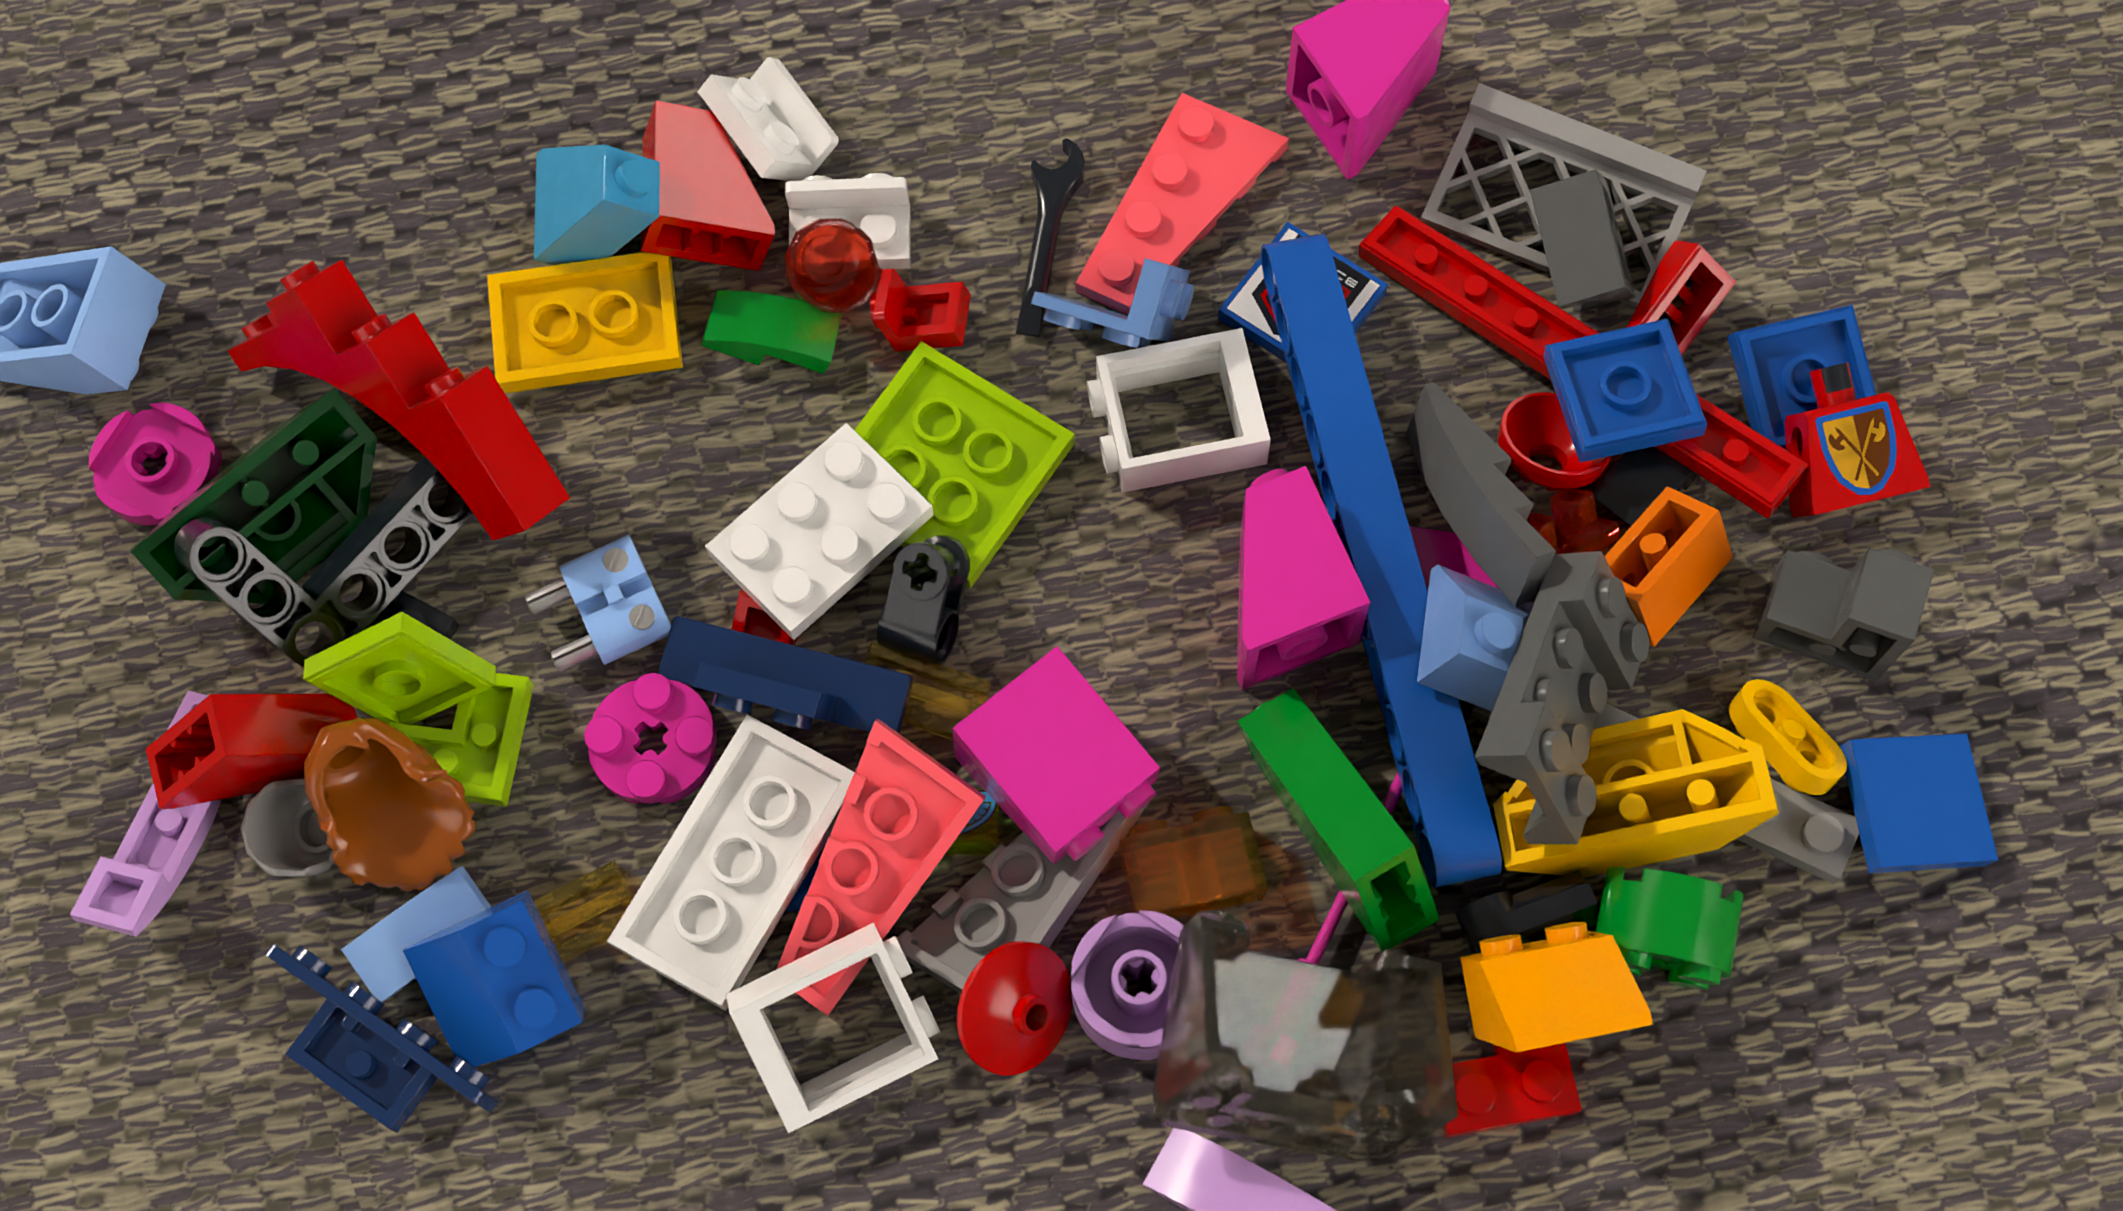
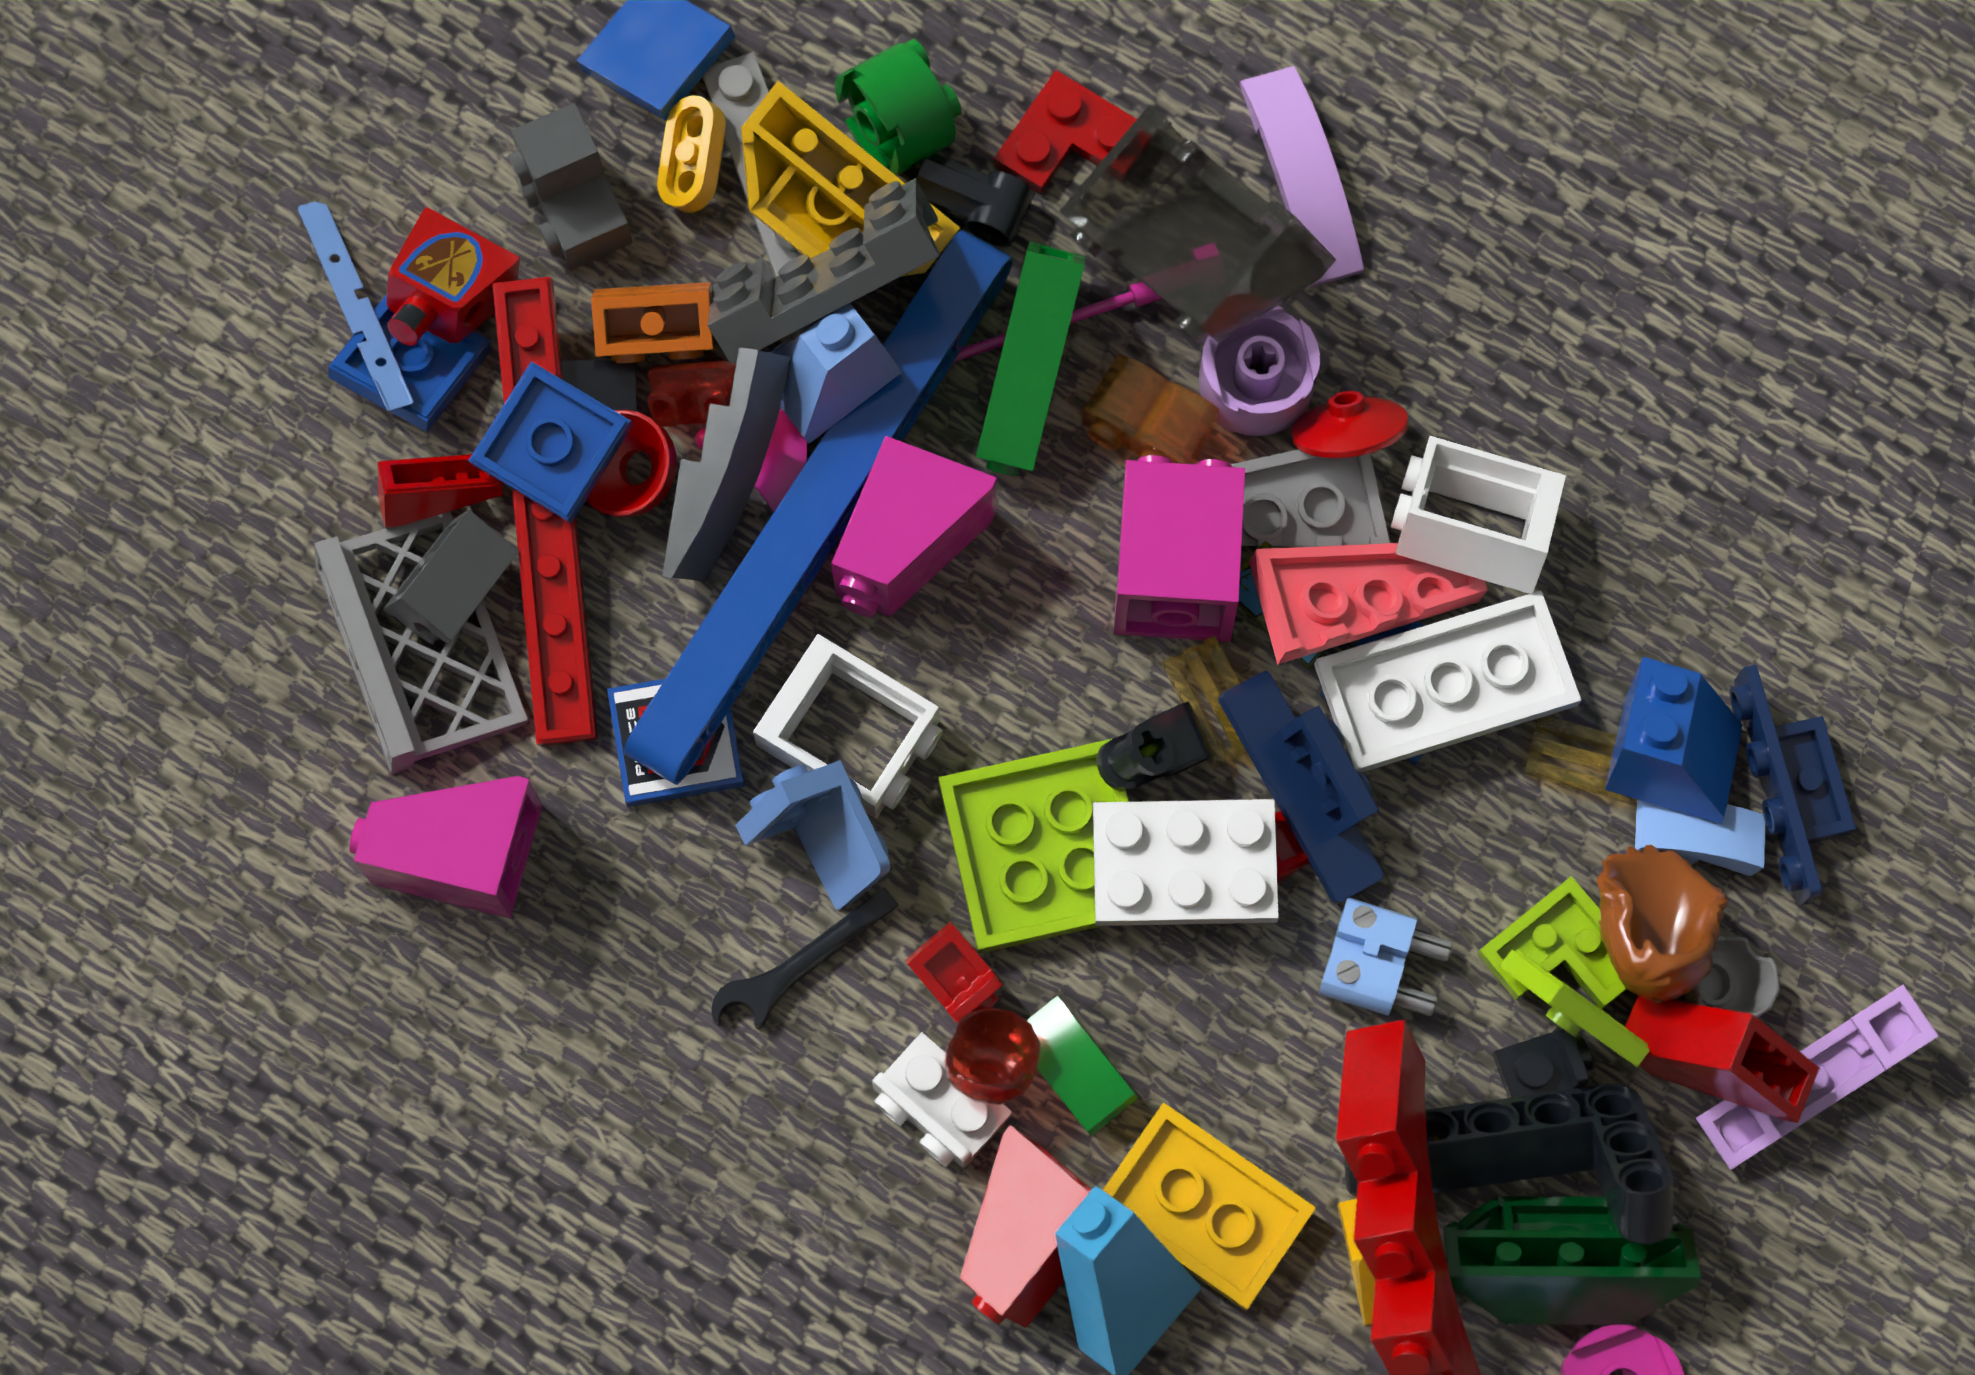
camera: 140 degrees left, 5 degrees up
(651, 776) = (1404, 858): dark pink plate -> none
(771, 121) = (921, 1239): white bracket -> none
(1178, 194) = (670, 903): coral wing -> none
(1551, 989) = (1020, 117): light orange slope -> none
(1885, 373) = (357, 312): none -> medium blue piece

